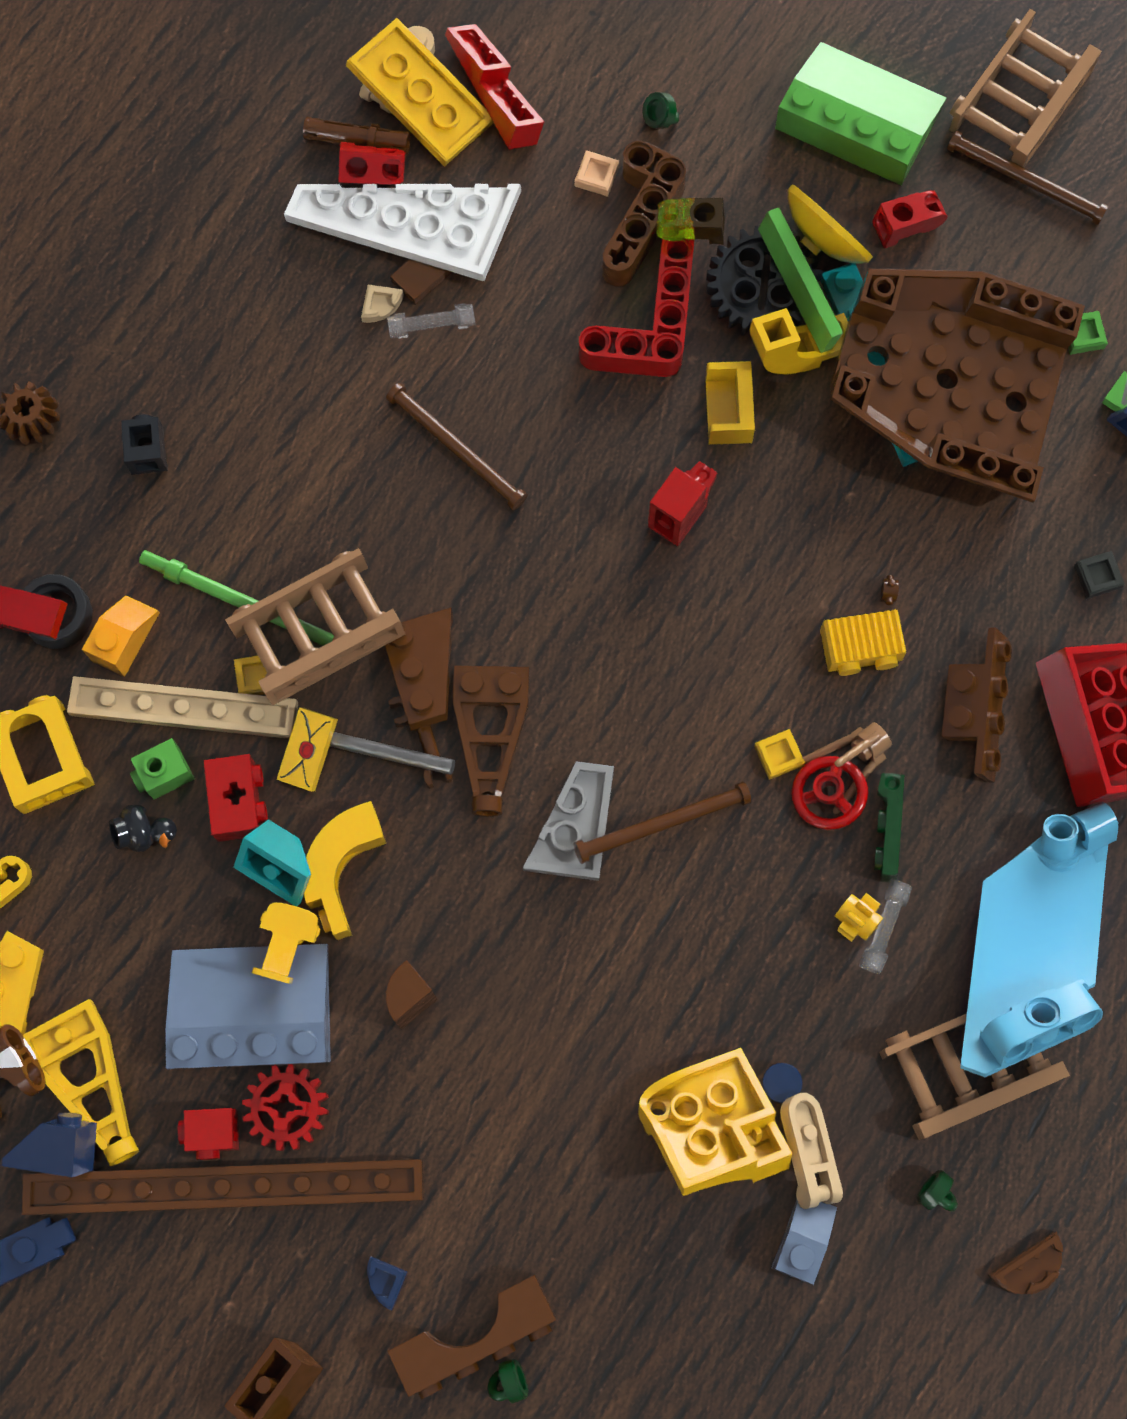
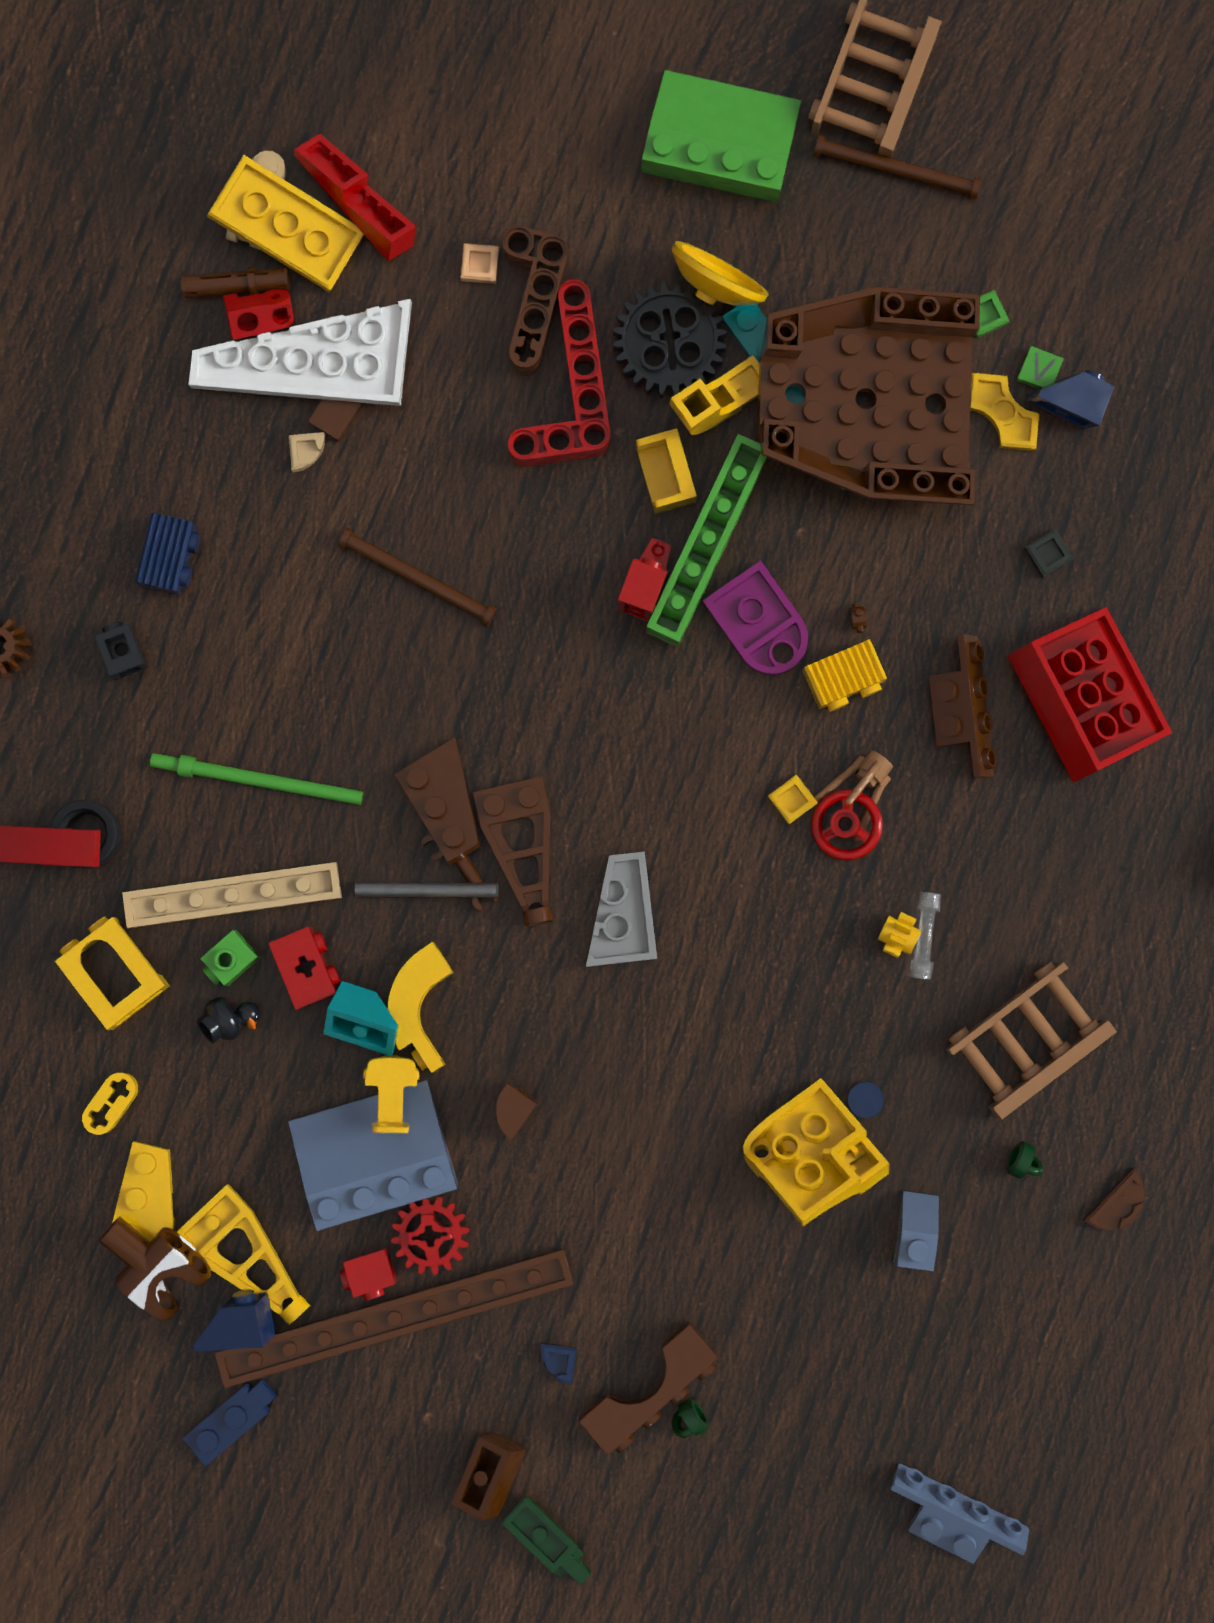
camera: 15 degrees left, 10 degrees up
(120, 634) = (154, 839): light orange slope -> none
(216, 365) = (167, 554): none -> dark blue brick
(248, 673) = (290, 846): yellow tile -> none
(307, 749) = (358, 906): yellow tile -> none
(315, 662) = (369, 800): medium nougat fence -> none
(400, 326) = (388, 444): clear bar -> none
(660, 110) = (525, 184): dark green tile -> none
(662, 822) = (651, 928): reddish brown bar -> none
(691, 219) = (586, 301): leg -> none
(754, 477) = (707, 541): none -> bright green brick
(787, 567) = (758, 618): none -> magenta tile
(800, 280) = (704, 337): bright green tile -> none
(810, 1151) = (904, 1154): tan plate -> none
(889, 822) = (907, 840): dark green hinge -> none
(908, 216) = (792, 238): red leg -> none
(1039, 944) = (1065, 919): medium azure panel -> none
(1089, 440) = (1014, 424): none -> yellow tile

